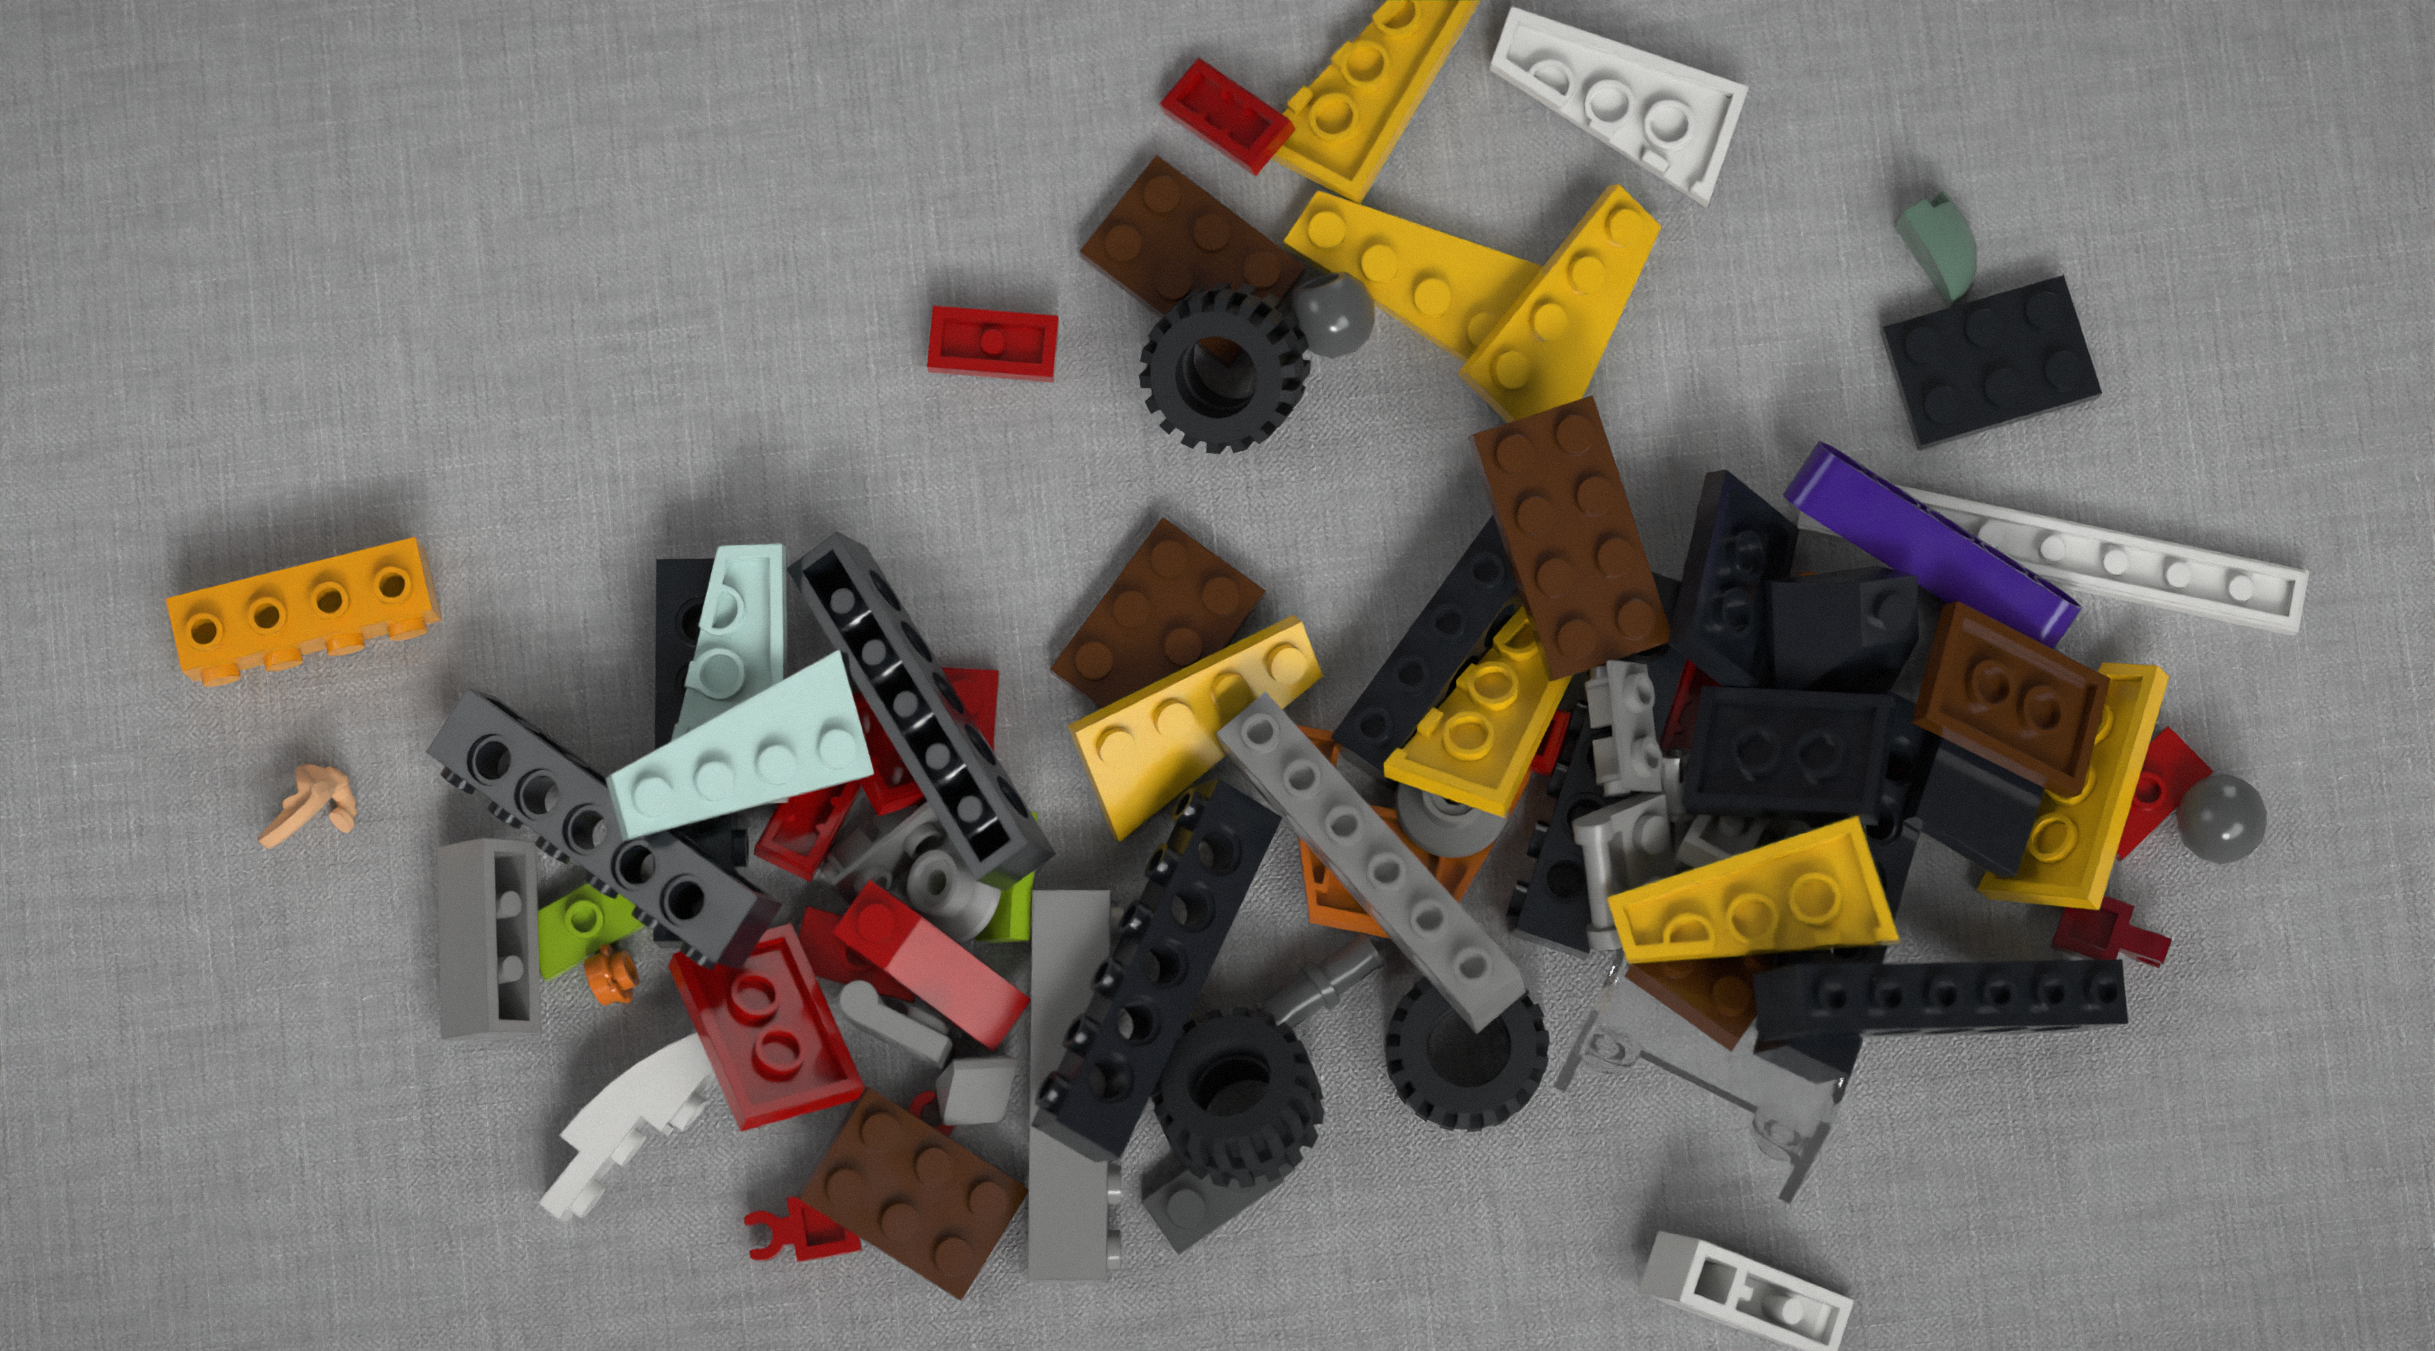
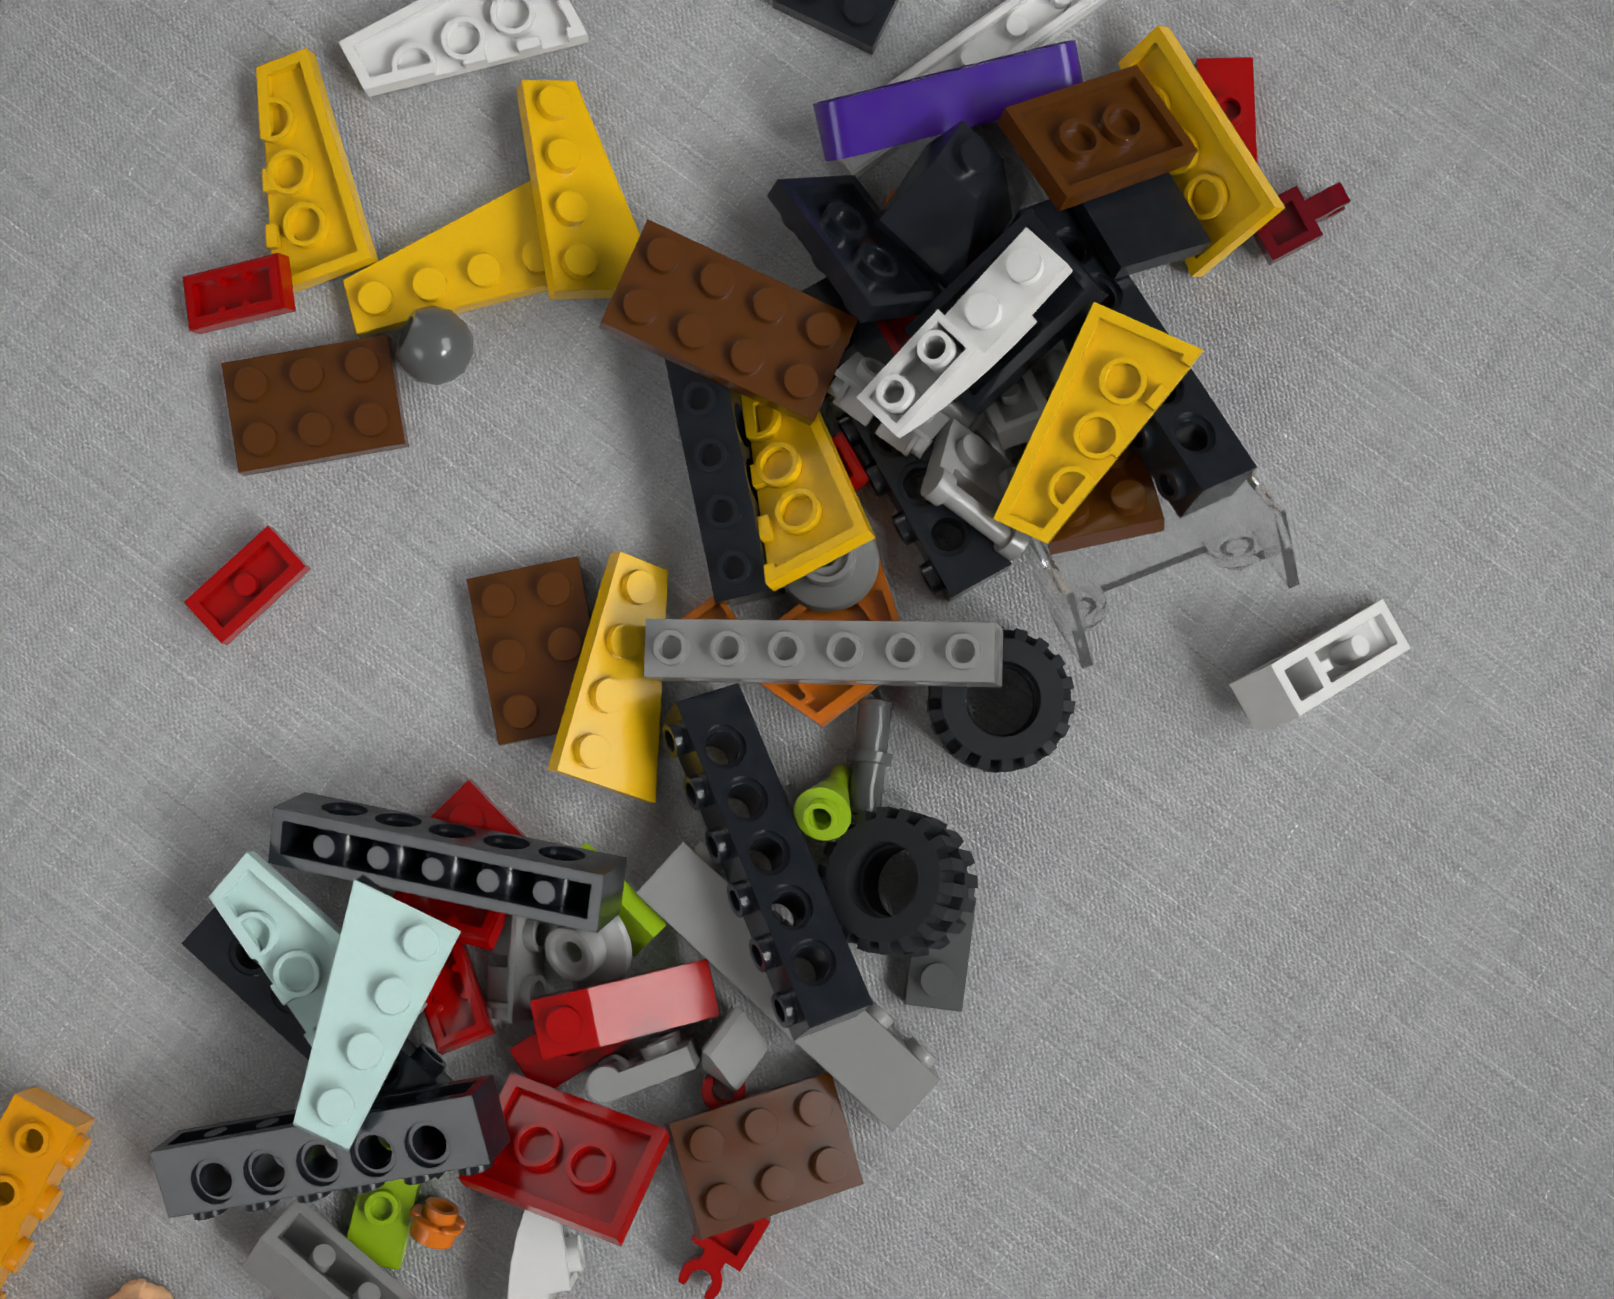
camera: 45 degrees left, 5 degrees up
(1193, 405) = (392, 490): black tyre -> none
(1244, 980) = (825, 808): none -> lime cone
(1730, 743) = (969, 339): none -> white slope
(1939, 998) = (1256, 365): black brick -> none
(2221, 819) = (1291, 78): dark grey piece -> none

